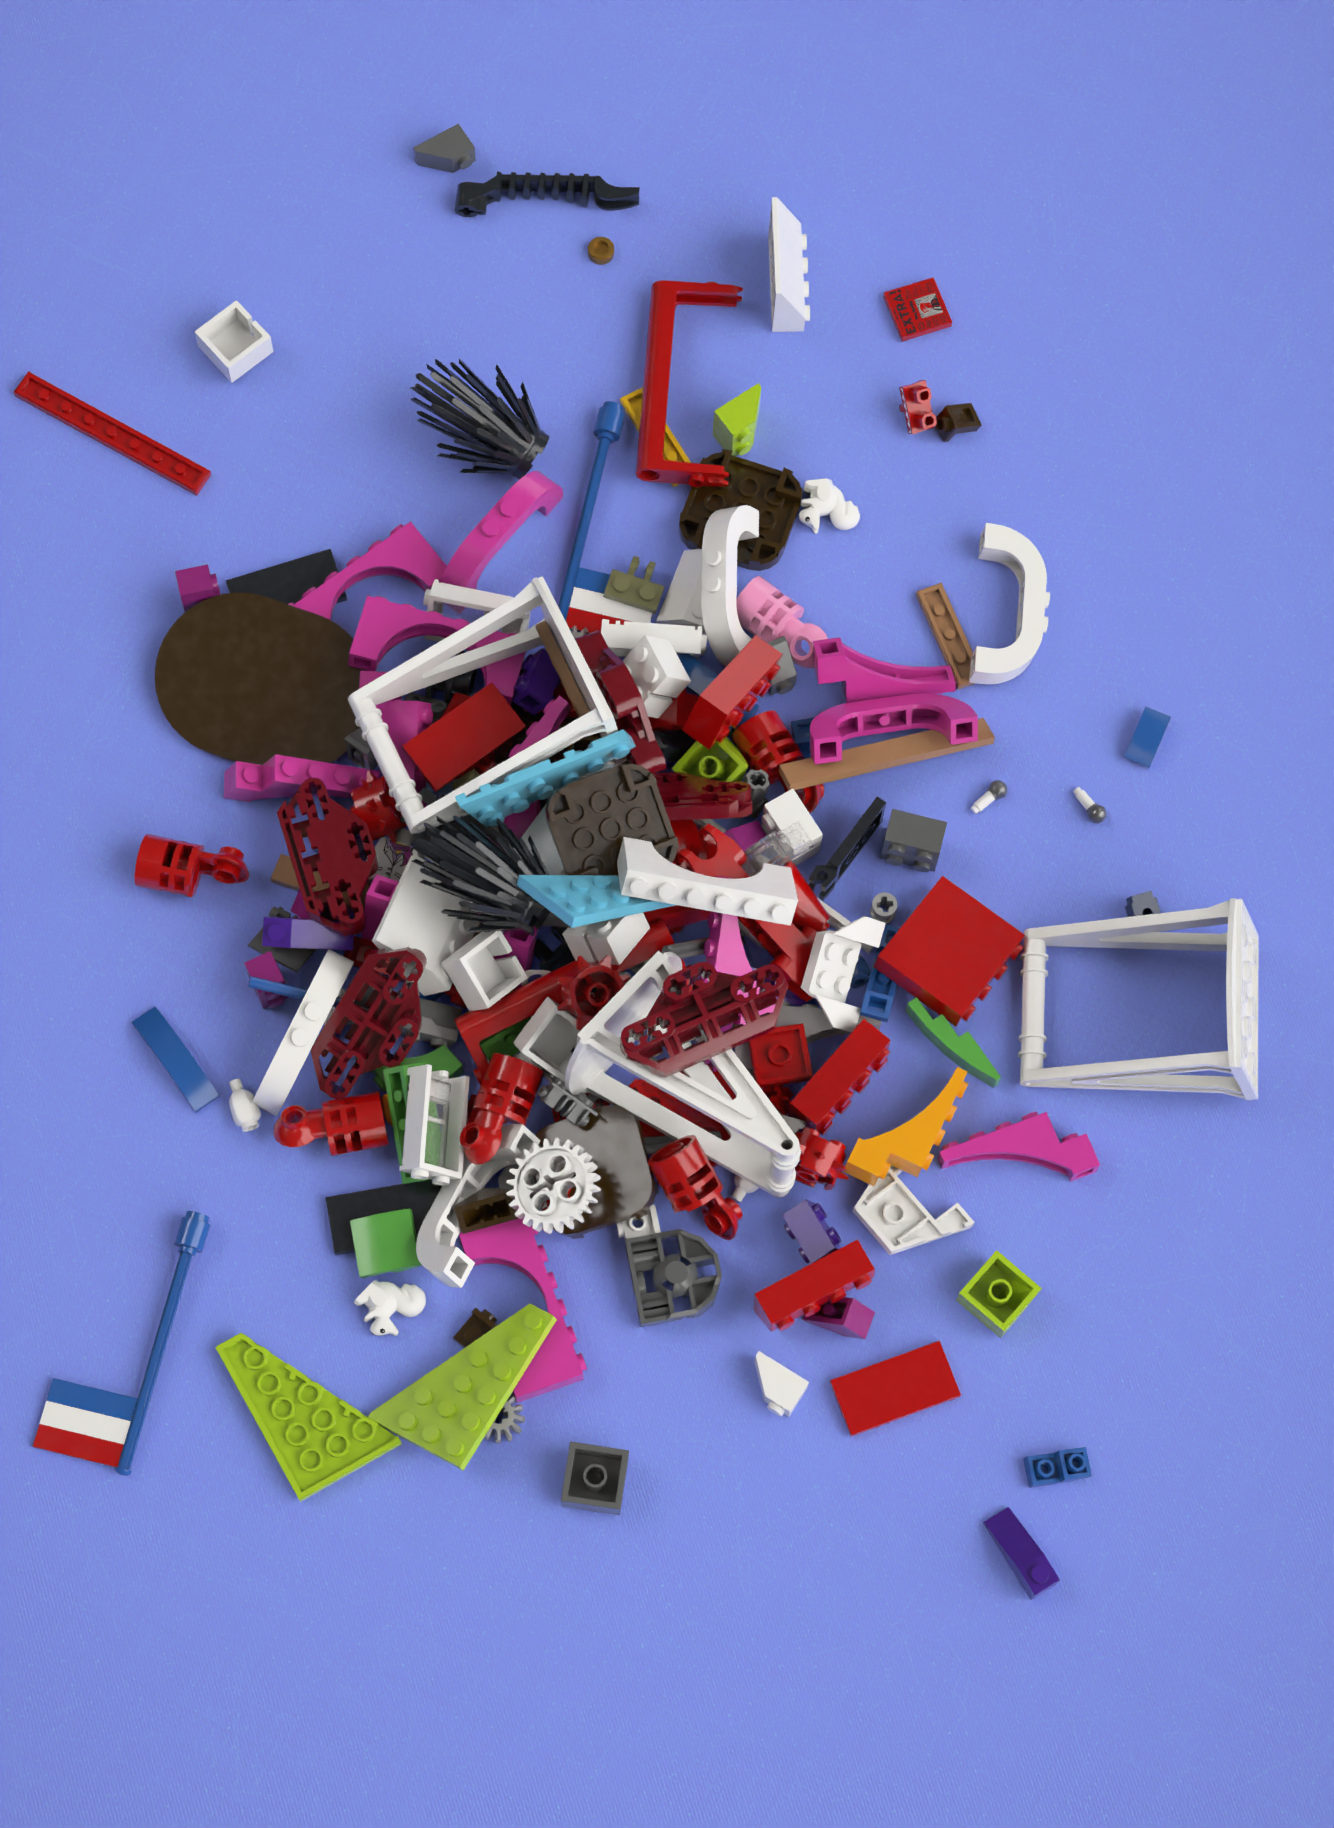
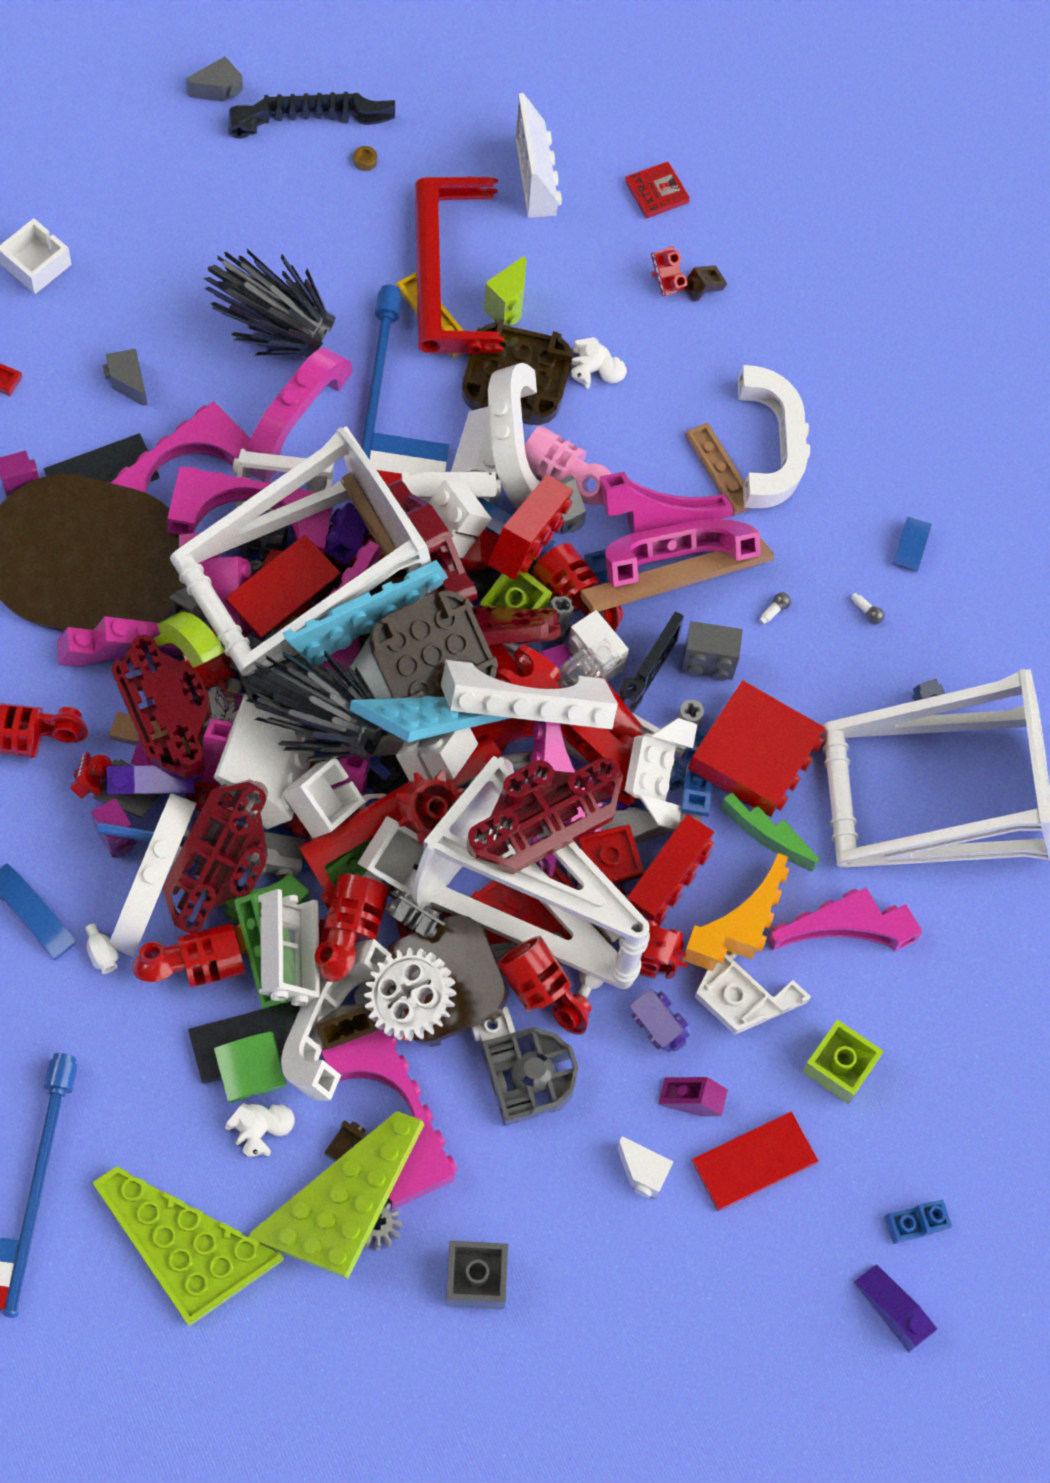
camera: 10 degrees left, 5 degrees down
(247, 921) = (90, 774): none -> red hips
(320, 482) = (126, 375): none -> dark grey slope
(361, 785) = (190, 636): none -> lime arch
(634, 590) = (427, 449): olive hinge -> none
(813, 1286) = (667, 1069): red slope -> none

